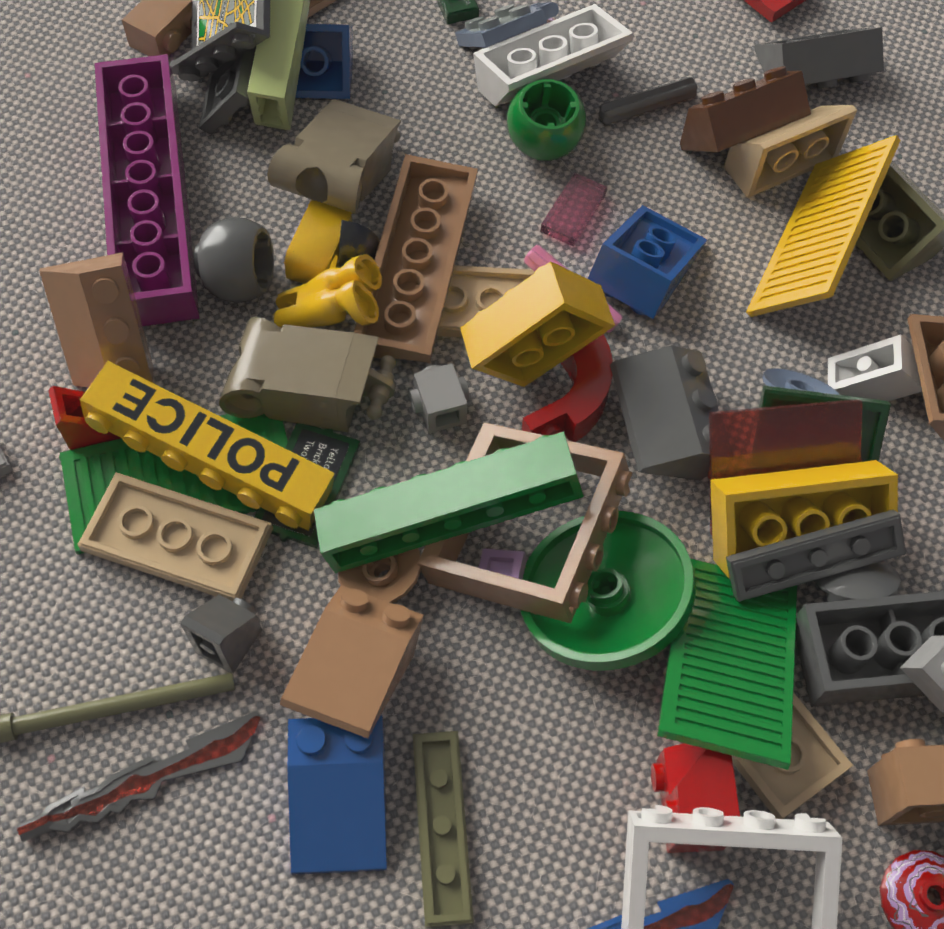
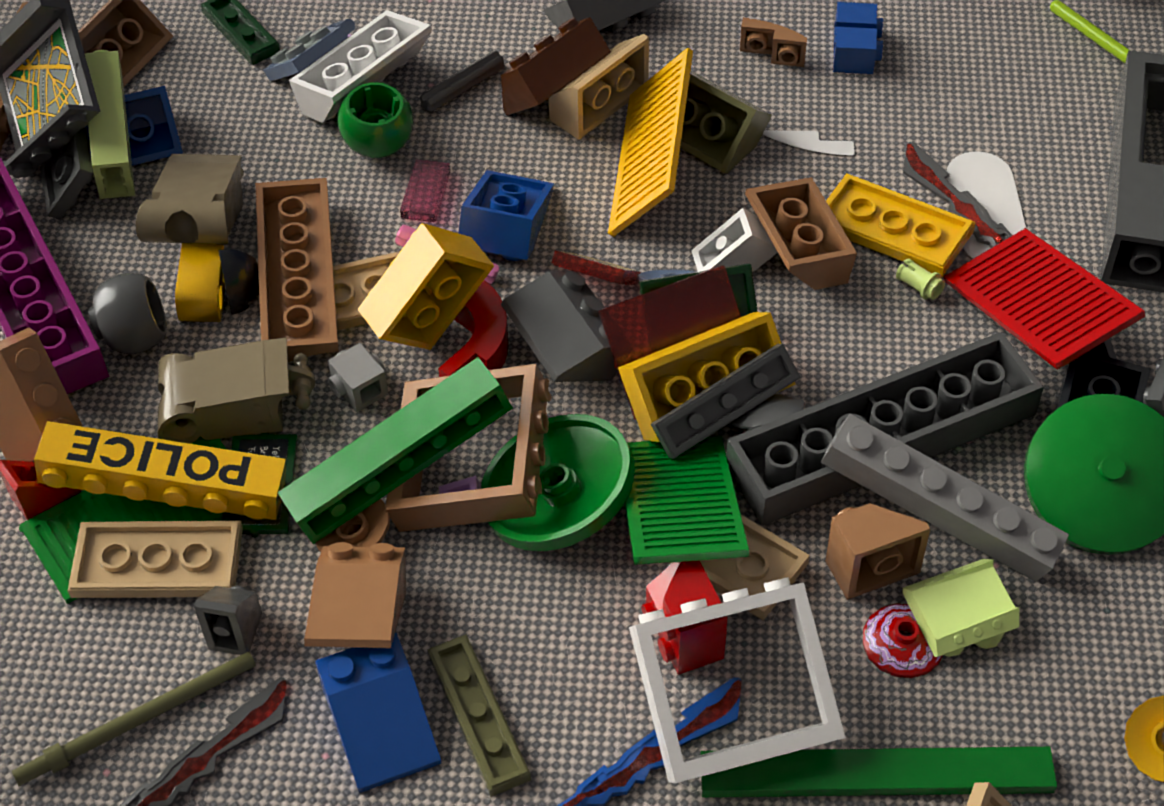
camera: 15 degrees left, 10 degrees down
(333, 295) = (229, 317): yellow piece -> none
(721, 352) = (595, 268): none -> clear red tile

